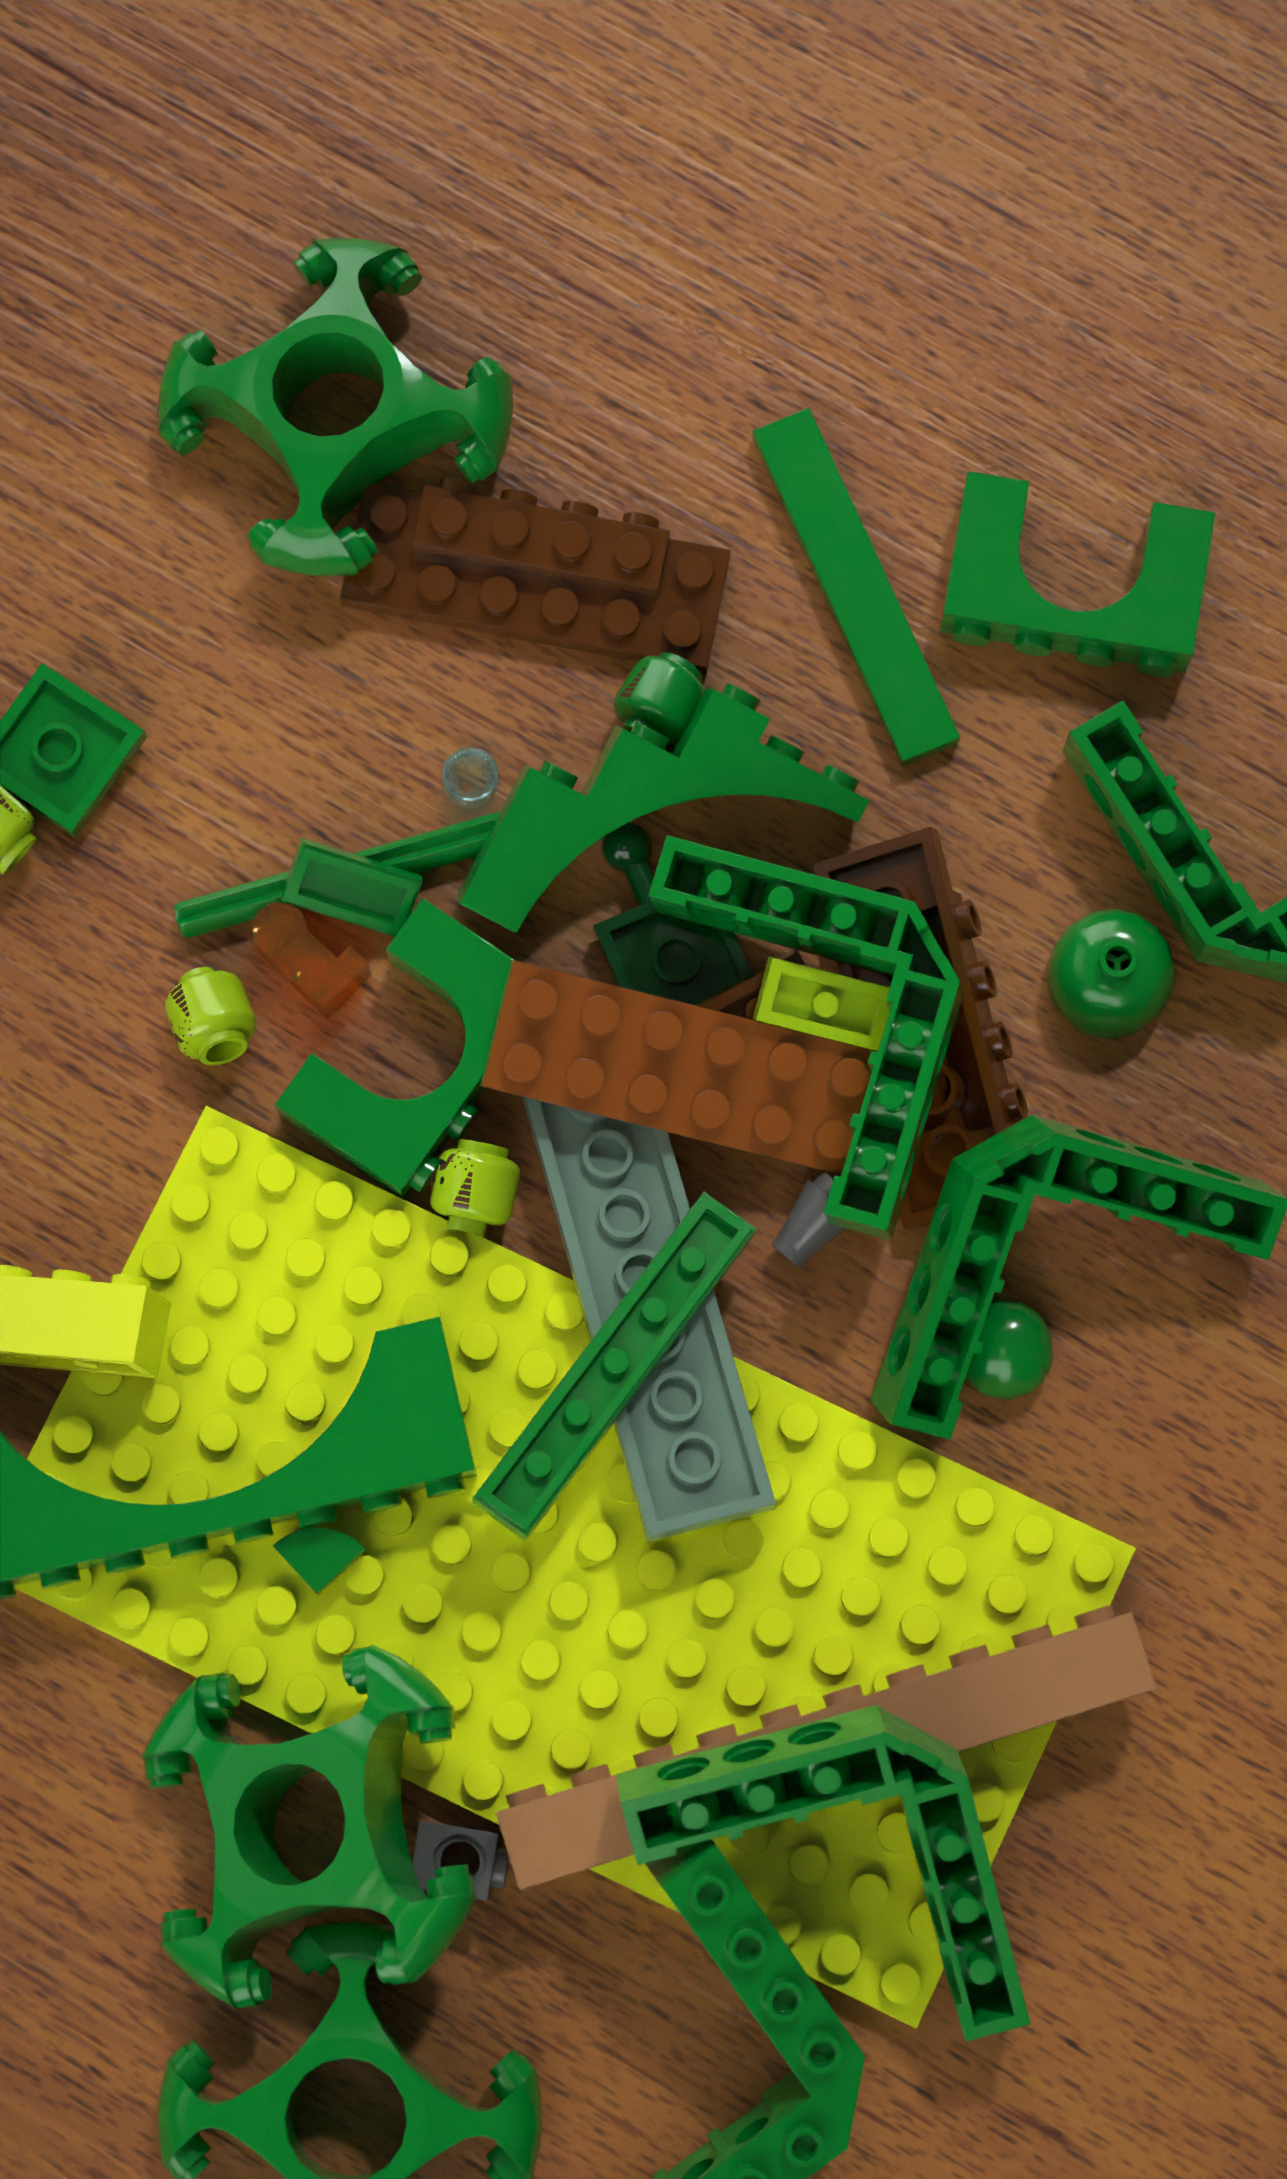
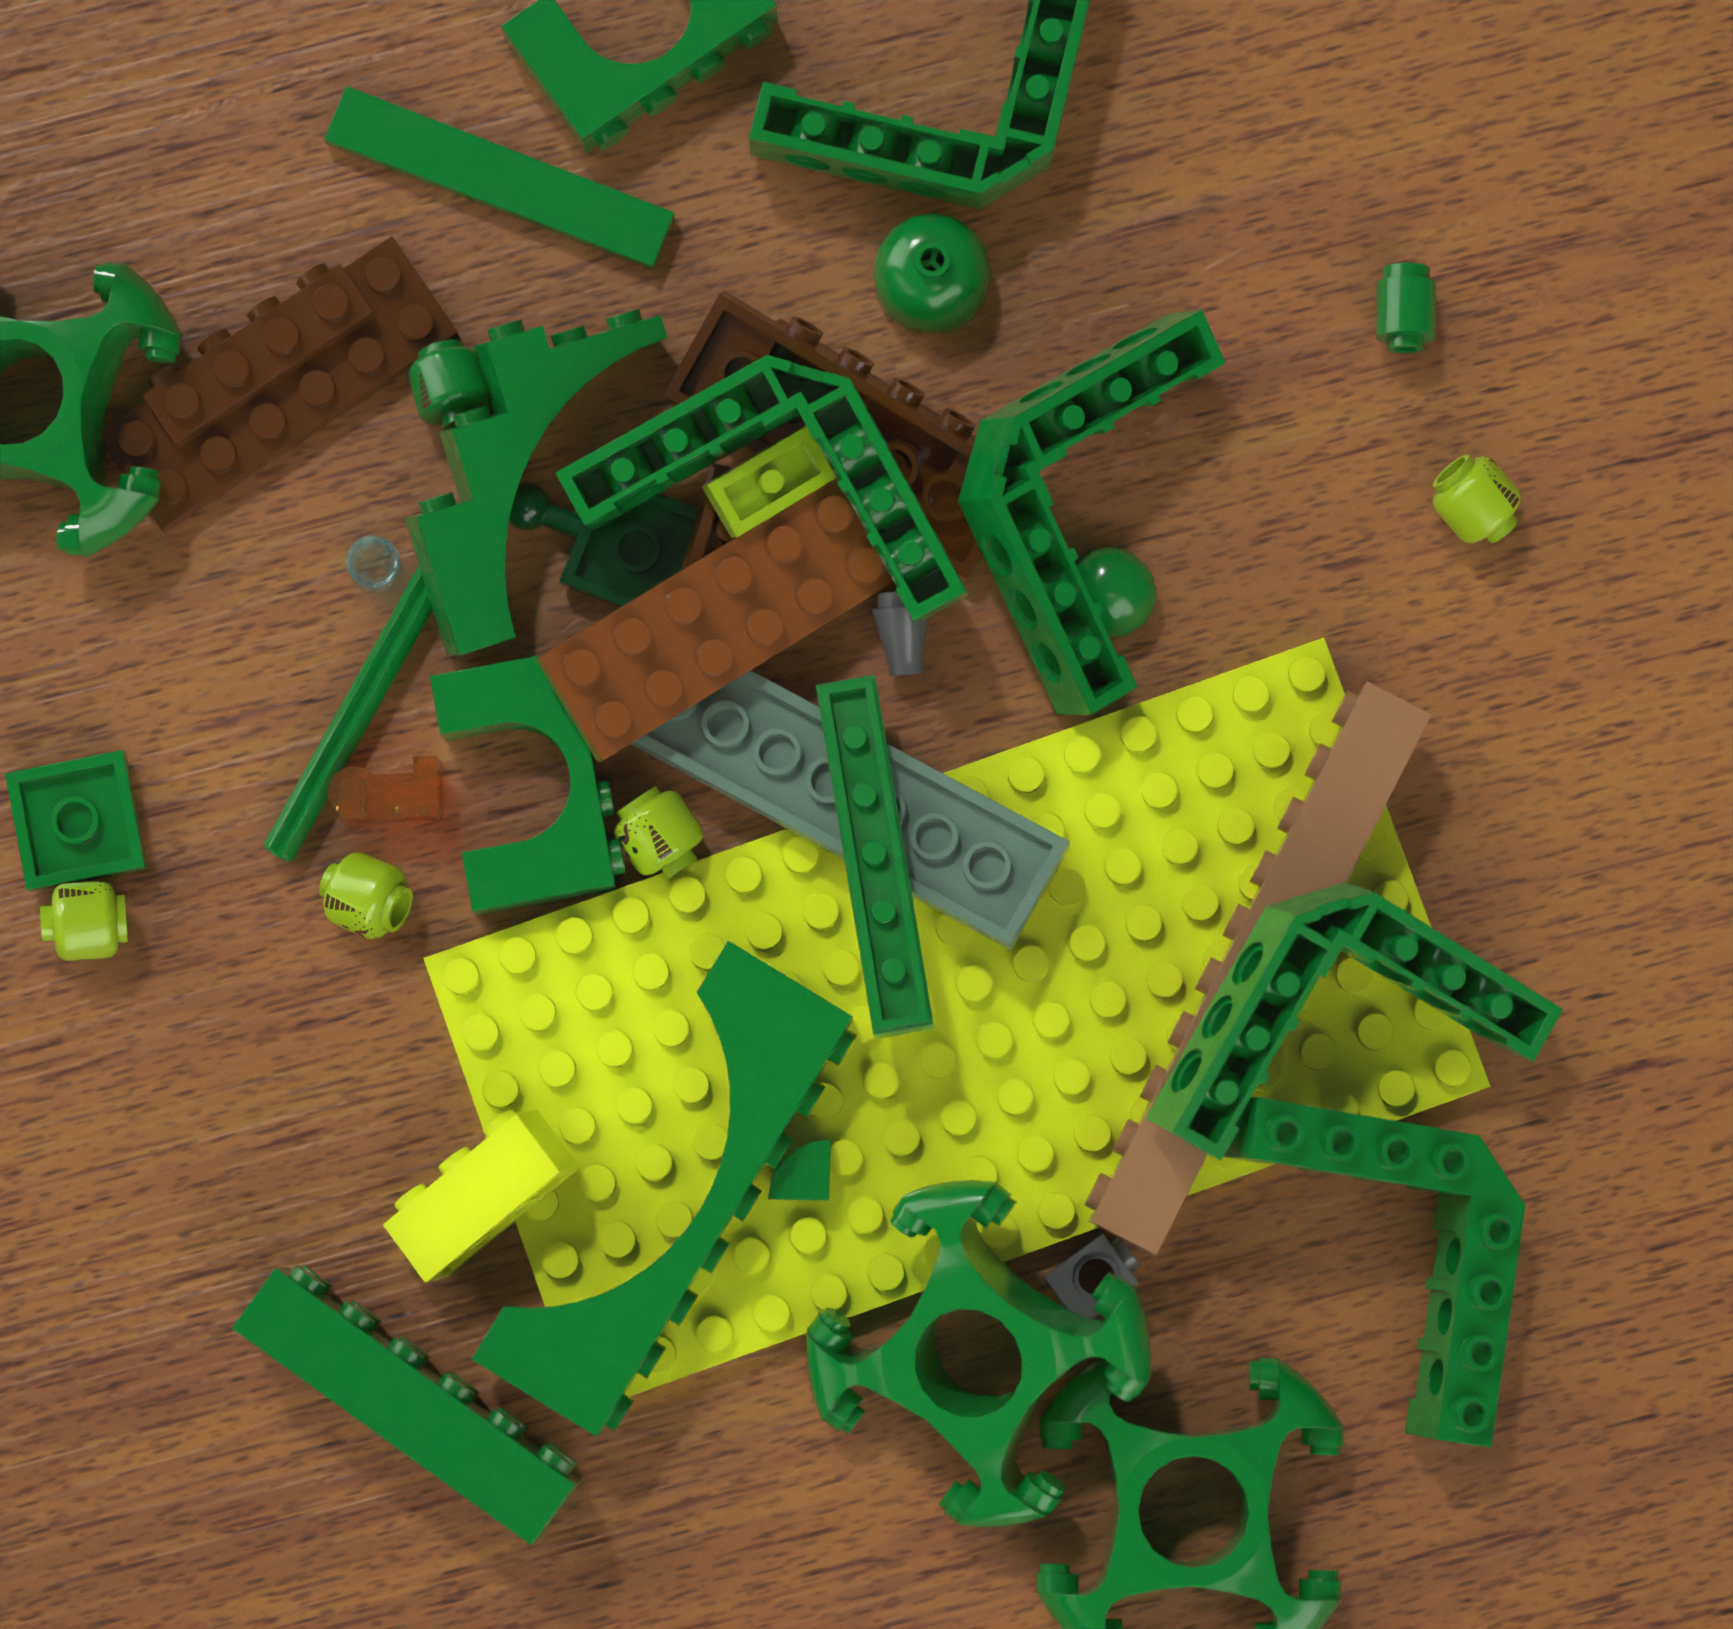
camera: 45 degrees left, 5 degrees up
(350, 887) = (372, 716): green tile -> none

